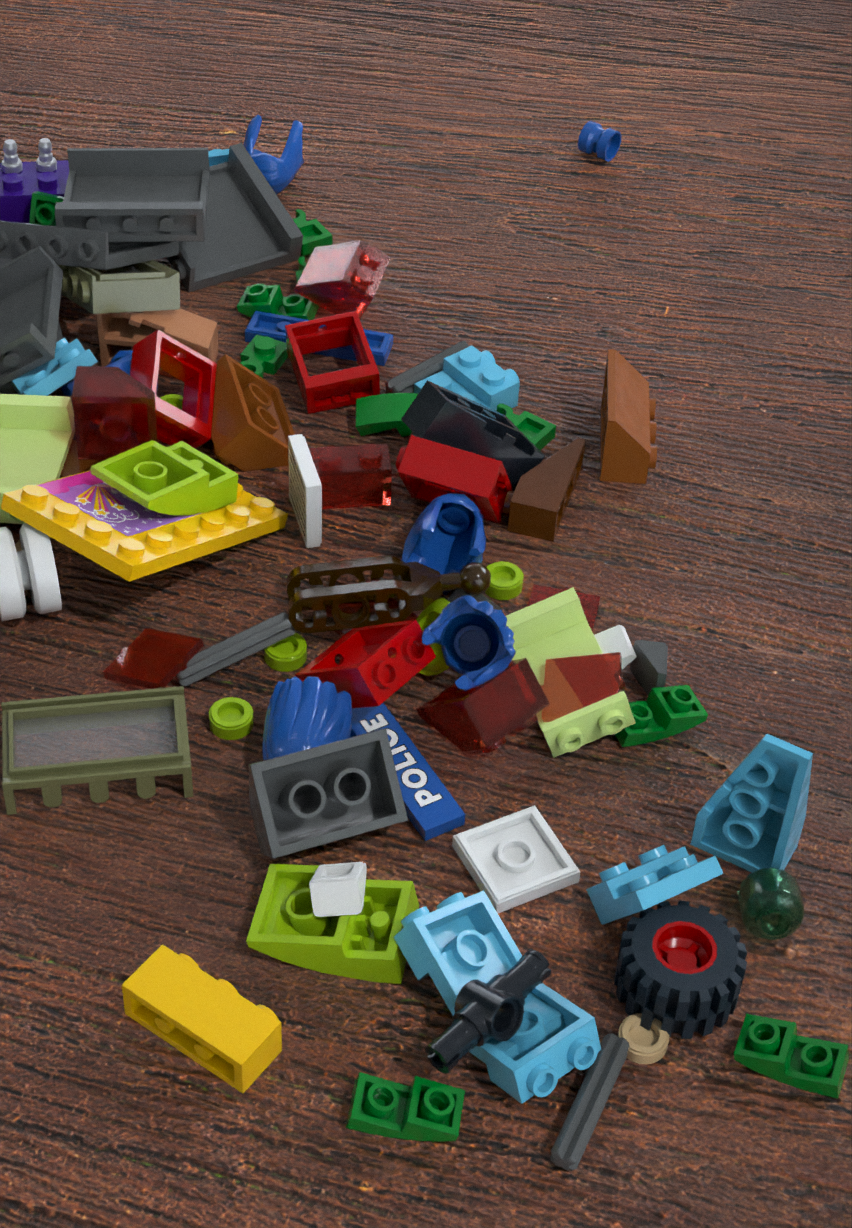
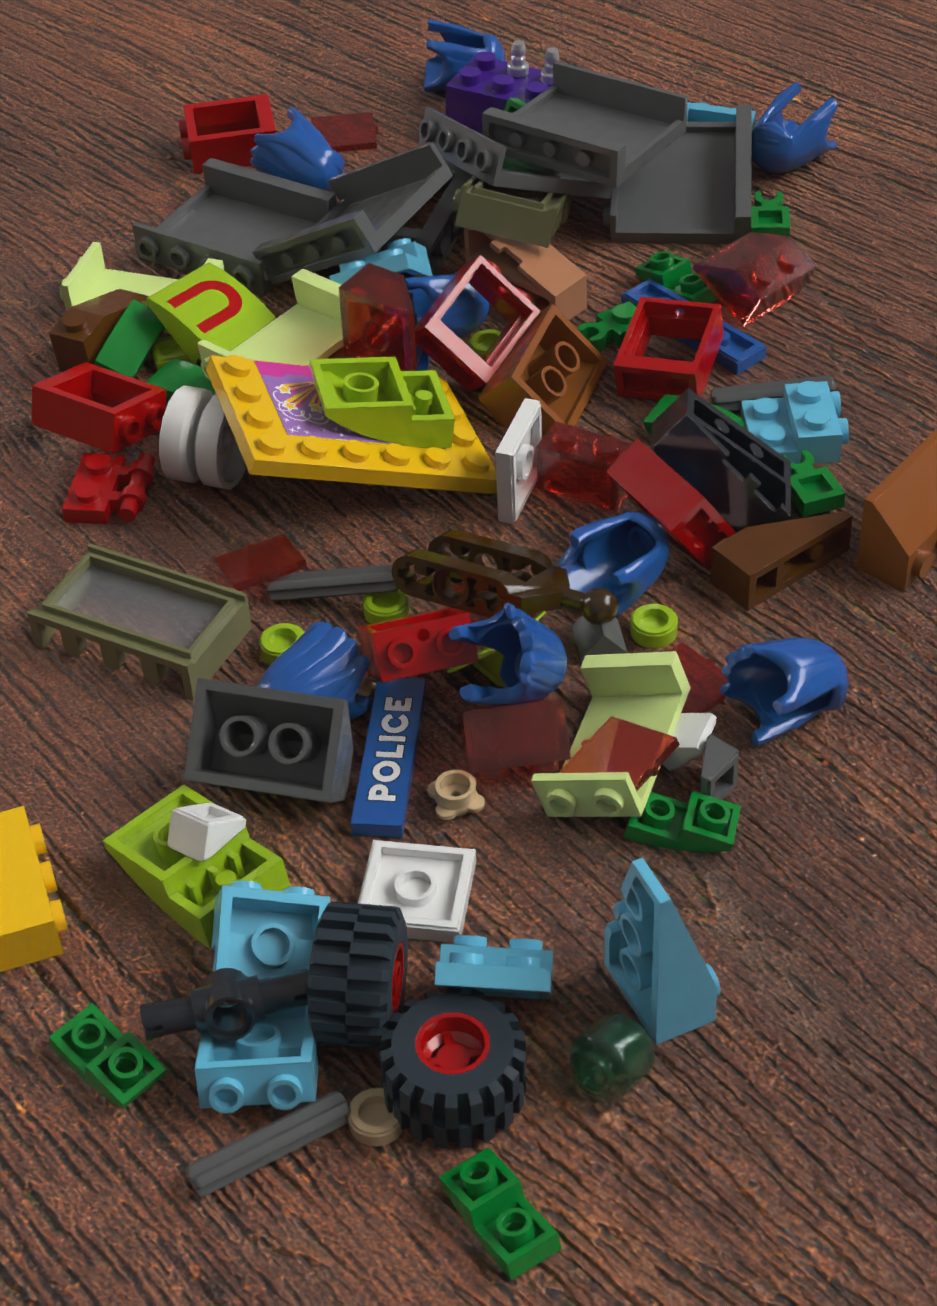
camera: 40 degrees right, 0 degrees up
(480, 771) = (455, 794): none -> tan plate
(573, 929) = (356, 973): none -> black wheel
(648, 581) = (785, 683): none -> blue hair

